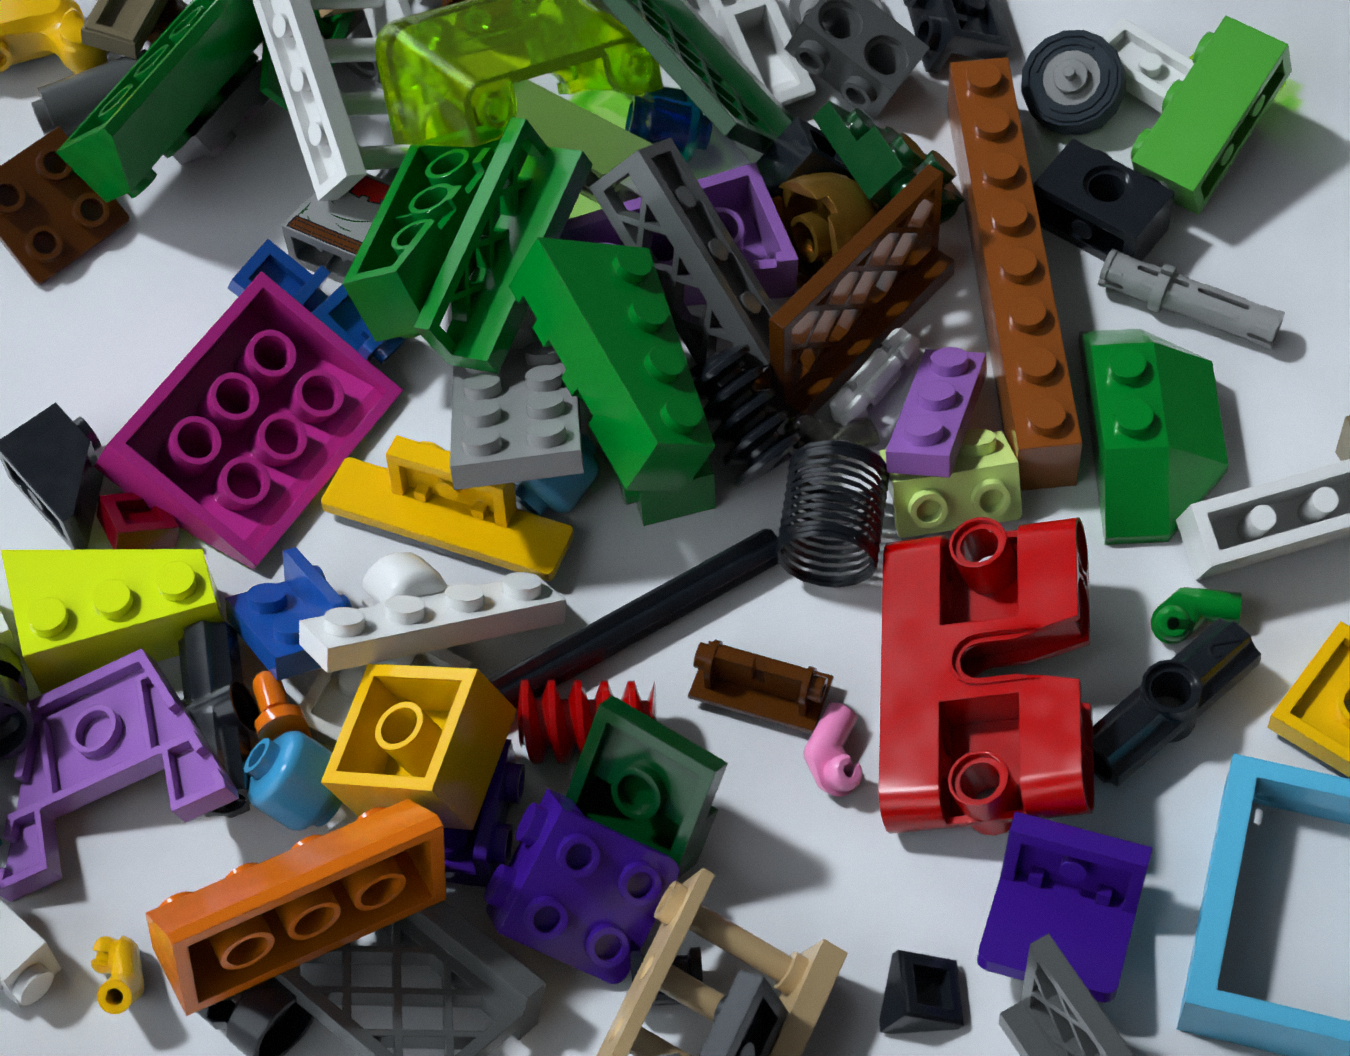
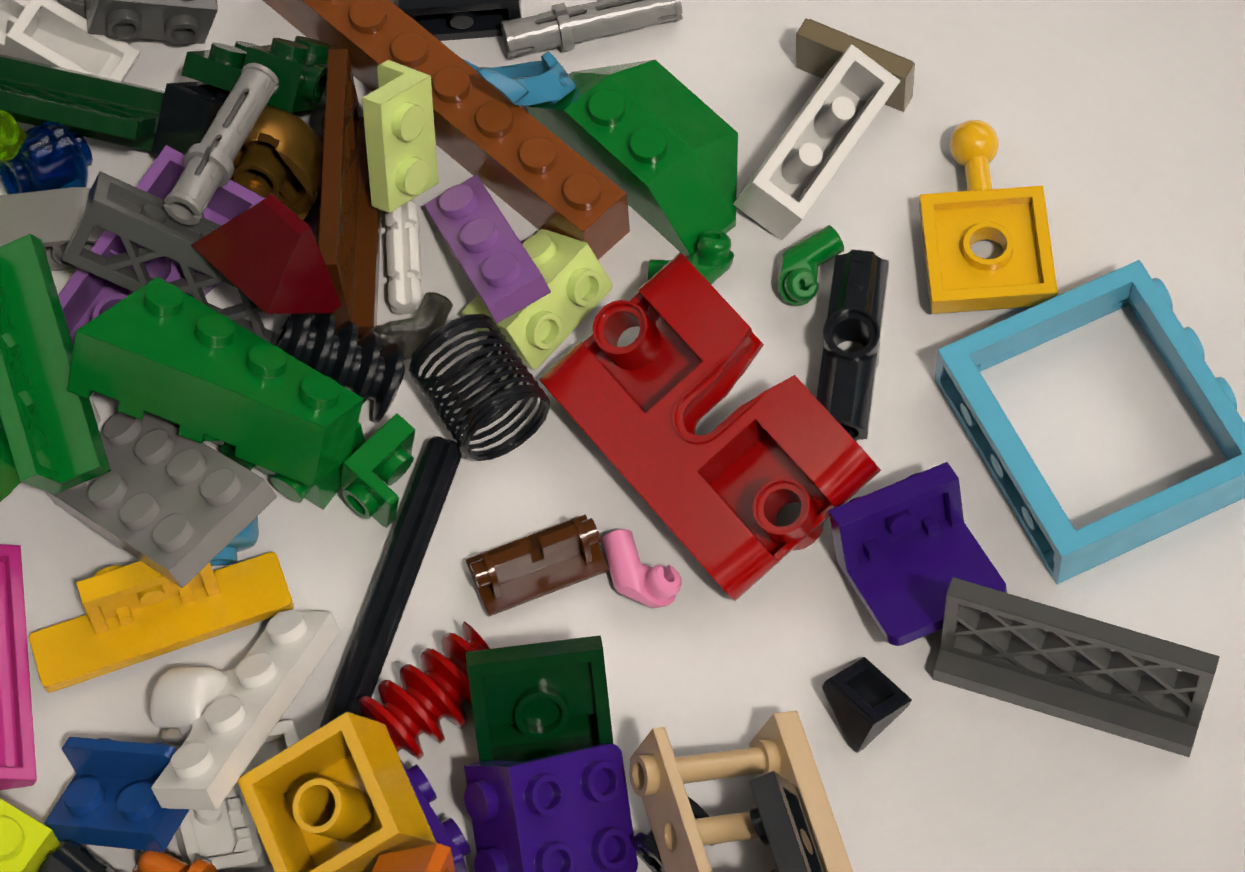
camera: 40 degrees left, 5 degrees up
(706, 514) = (378, 461): none -> green bracket
(732, 293) = (272, 260): none -> dark red slope
(762, 188) = (211, 160): none -> light grey pin
(940, 277) = (400, 136): none -> yellowish green bracket
(1080, 304) = (530, 81): none -> dark azure helmet
(1116, 552) = (710, 259): none -> green arm

